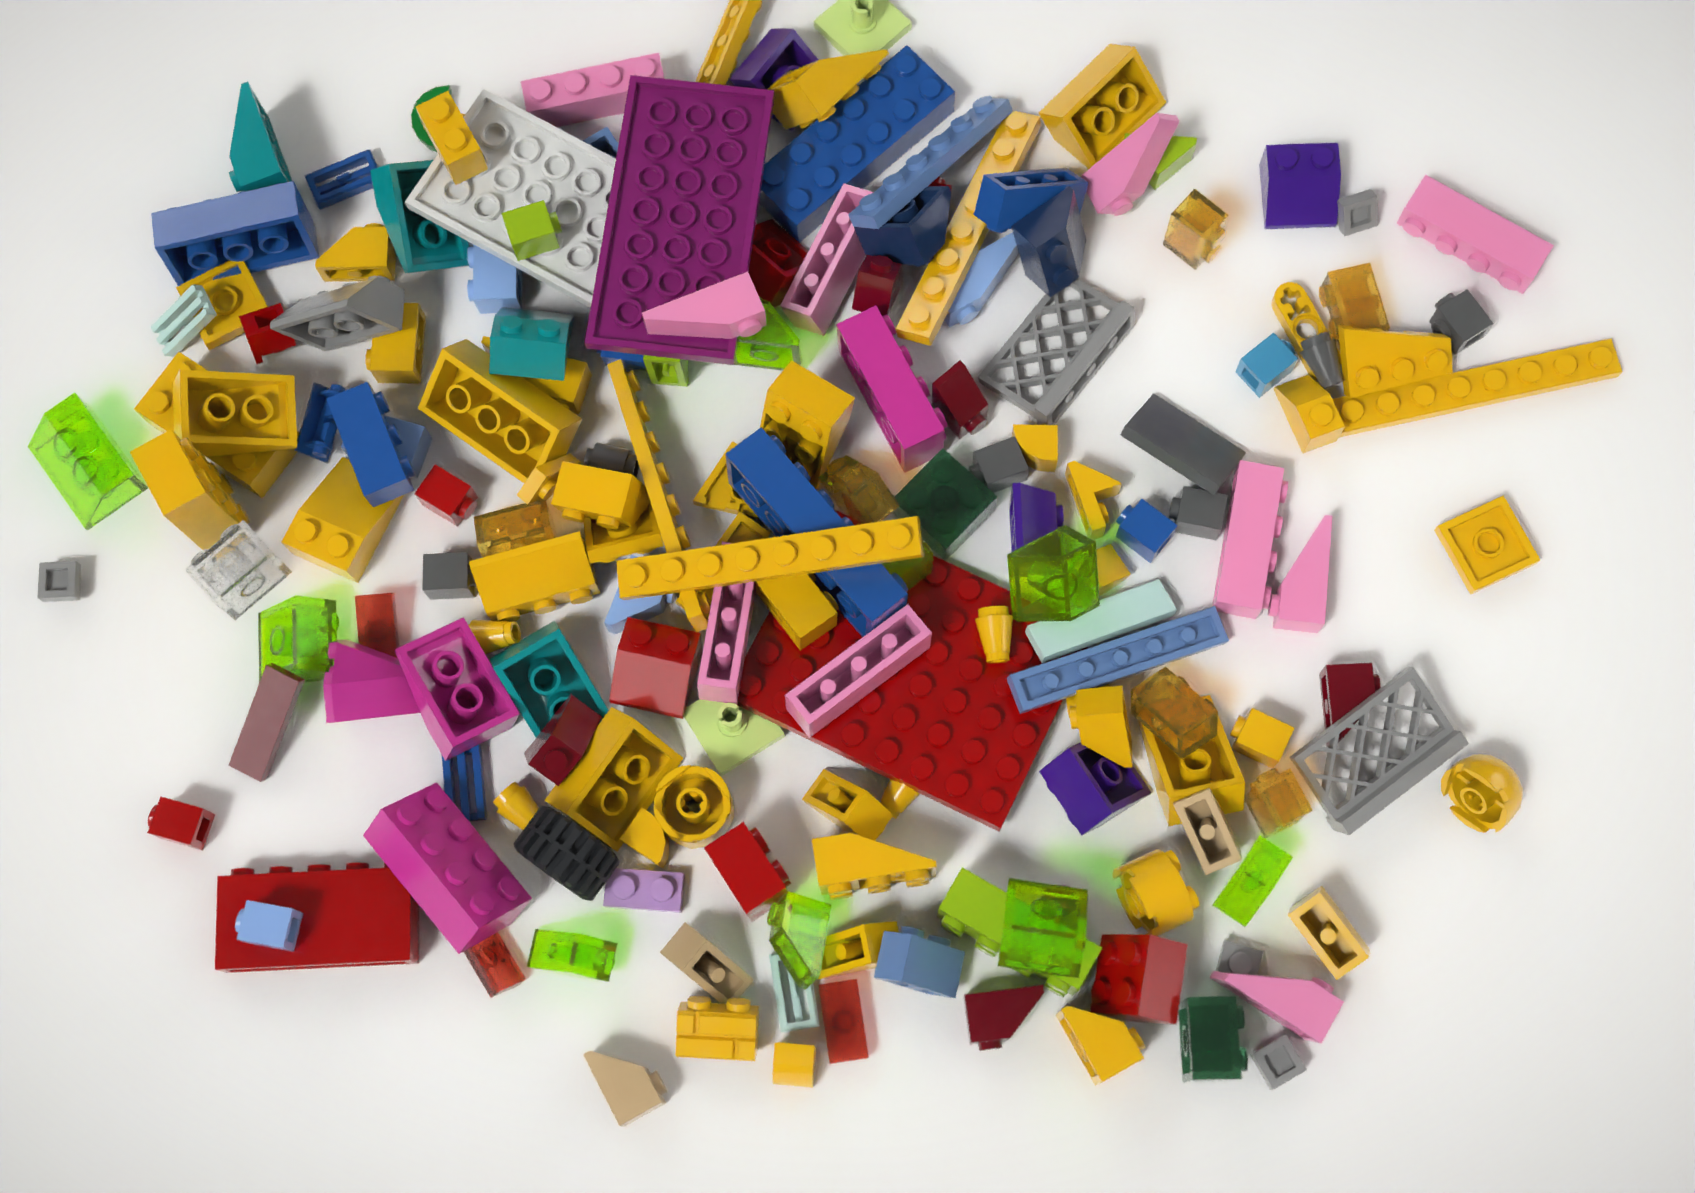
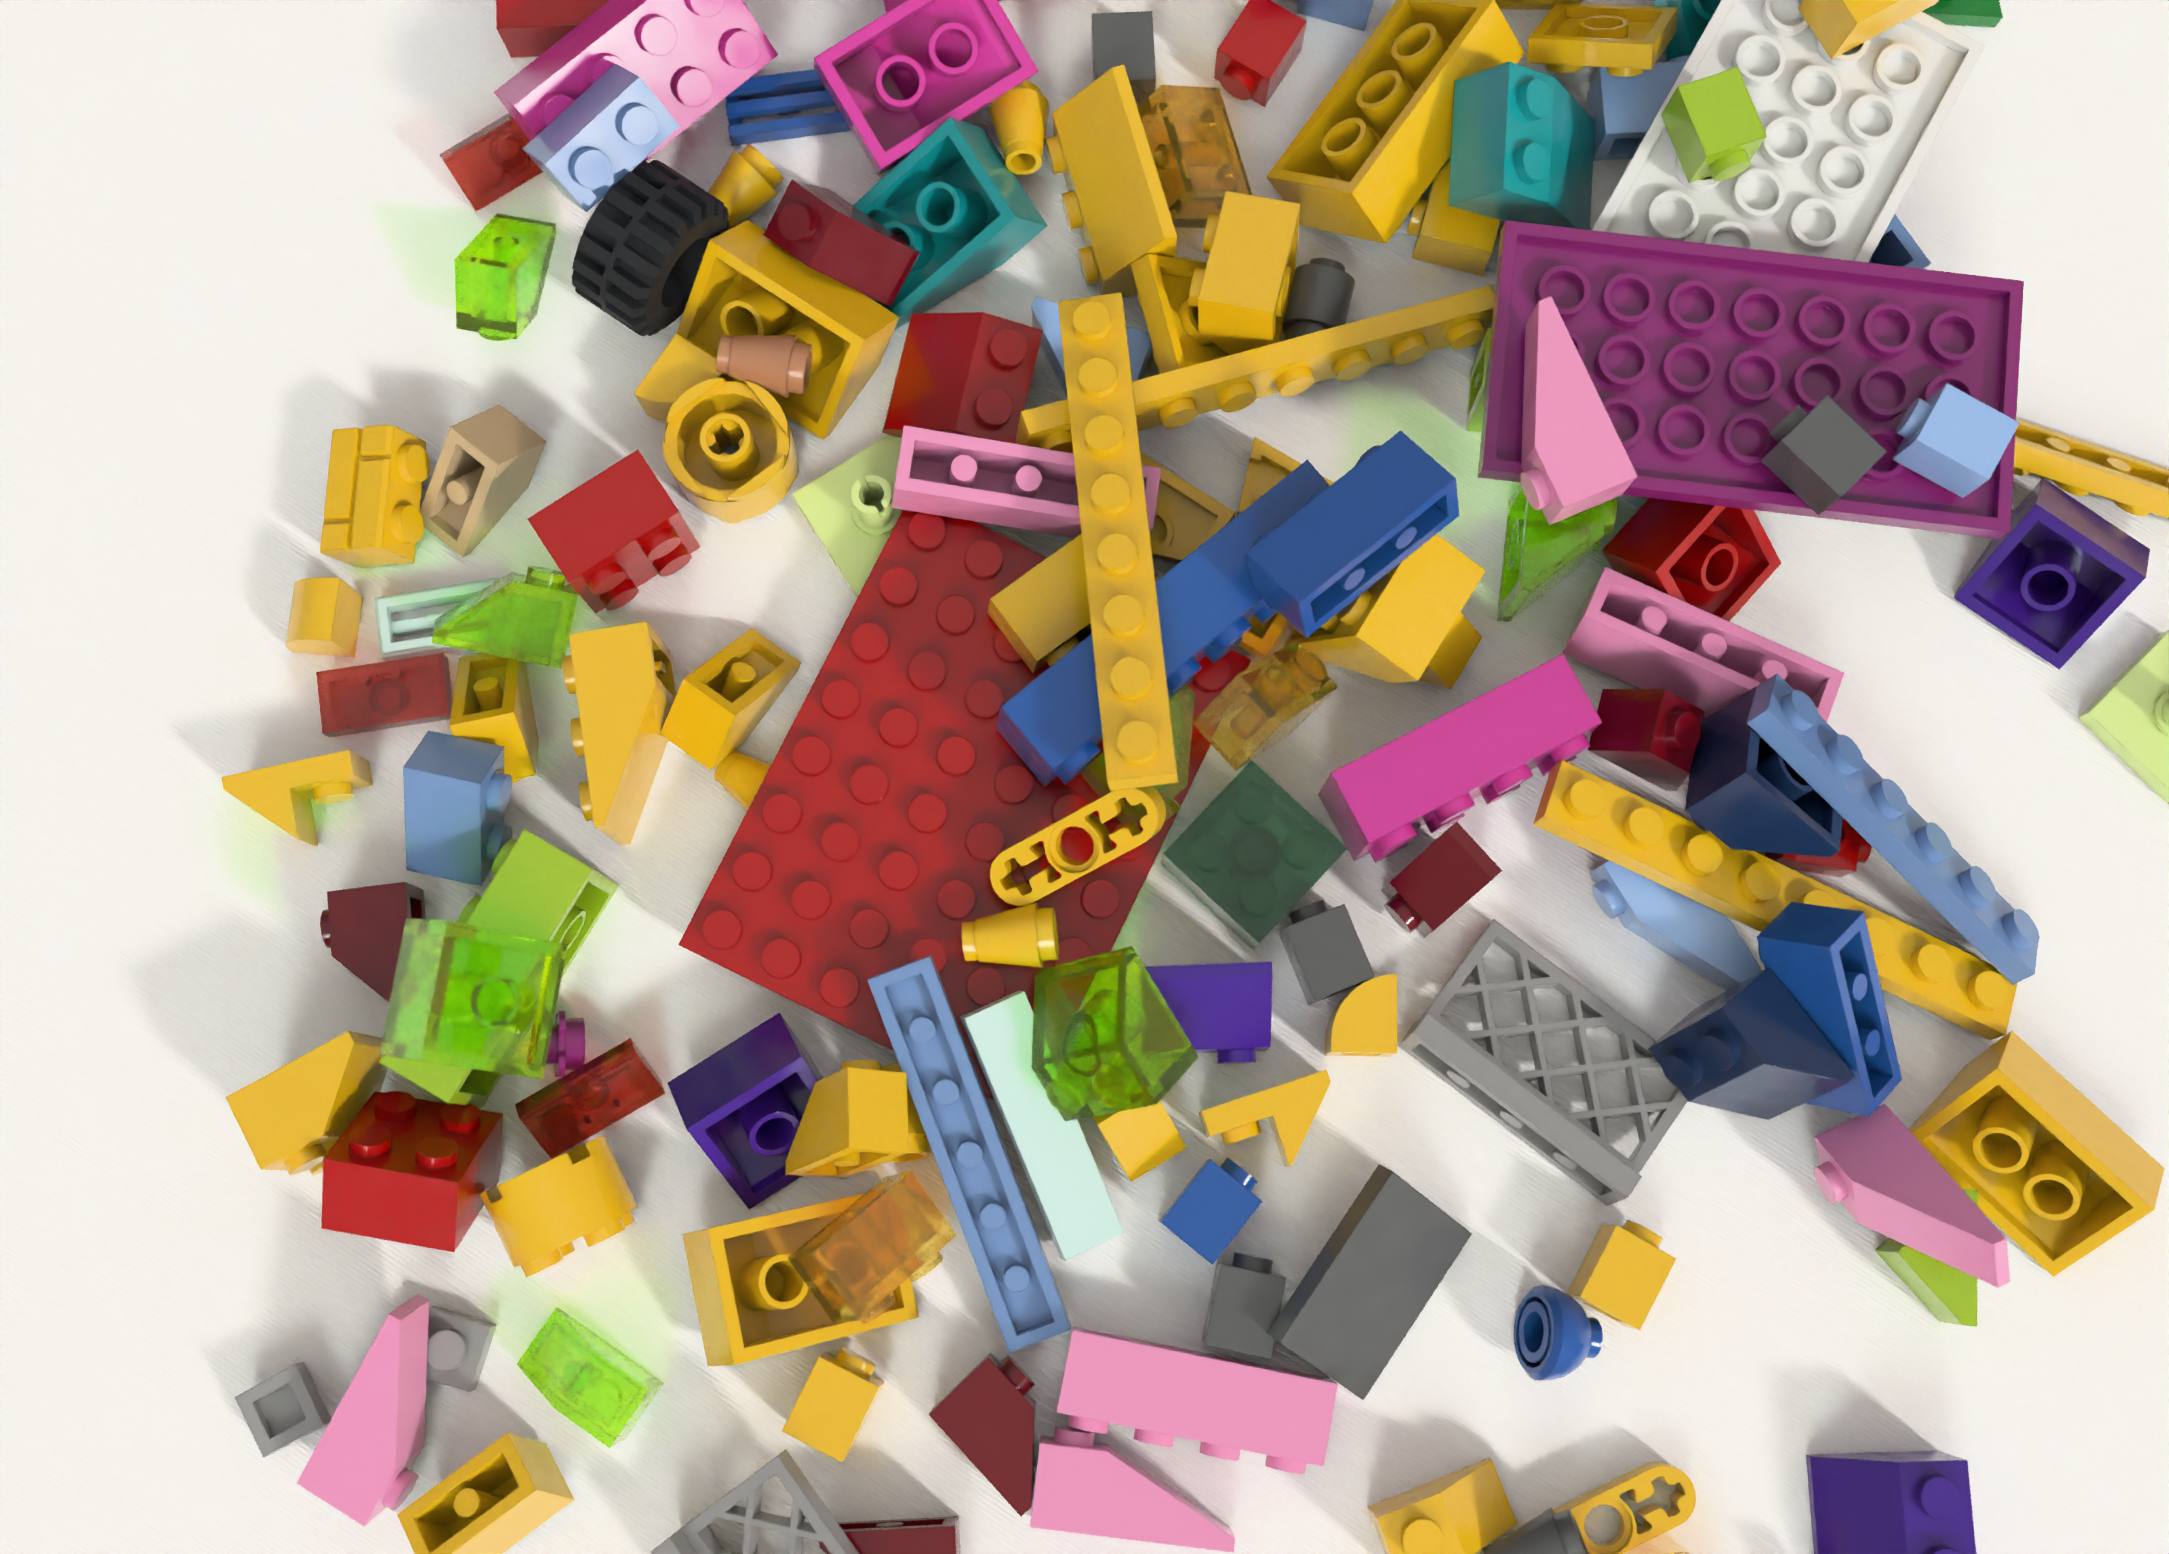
camera: 85 degrees right, 5 degrees up
(455, 296) = (1602, 35): none -> yellow plate
(501, 874) = (601, 137): none -> brick
(543, 480) = (1272, 177): yellow plate -> none
(587, 91) = (2001, 234): bright pink brick -> none
(626, 1087) = (300, 360): tan slope -> none
(643, 777) = (771, 361): none -> nougat cone
(644, 890) = (607, 376): lavender plate -> none
(725, 113) = (1953, 439): none -> light blue brick
(732, 179) = (1821, 453): none -> dark grey brick
(774, 425) = (1353, 533): none -> blue brick
(816, 87) = (2024, 611): yellow slope -> none
(855, 142) = (1937, 701): blue brick -> none
(858, 670) = (935, 697): bright pink brick -> none
(906, 1082) = (286, 790): none -> yellow slope
(964, 613) = (1046, 880): none -> yellow beam
(1085, 873) = (590, 1098): none -> clear red plate
(1173, 314) = (1622, 1273): none -> yellow brick
(1196, 230) = (1787, 1319): clear yellow brick -> none
(1207, 351) = (1554, 1334): none -> blue brick
(1208, 831) = (656, 1302): tan slope -> none
(1211, 1039) = (300, 1290): clear green brick -> none
(1267, 364) = (1531, 1446): dark azure brick -> none
(1268, 647) = (994, 1426): none -> dark red slope
(1276, 801) = (708, 1424): clear yellow brick -> none

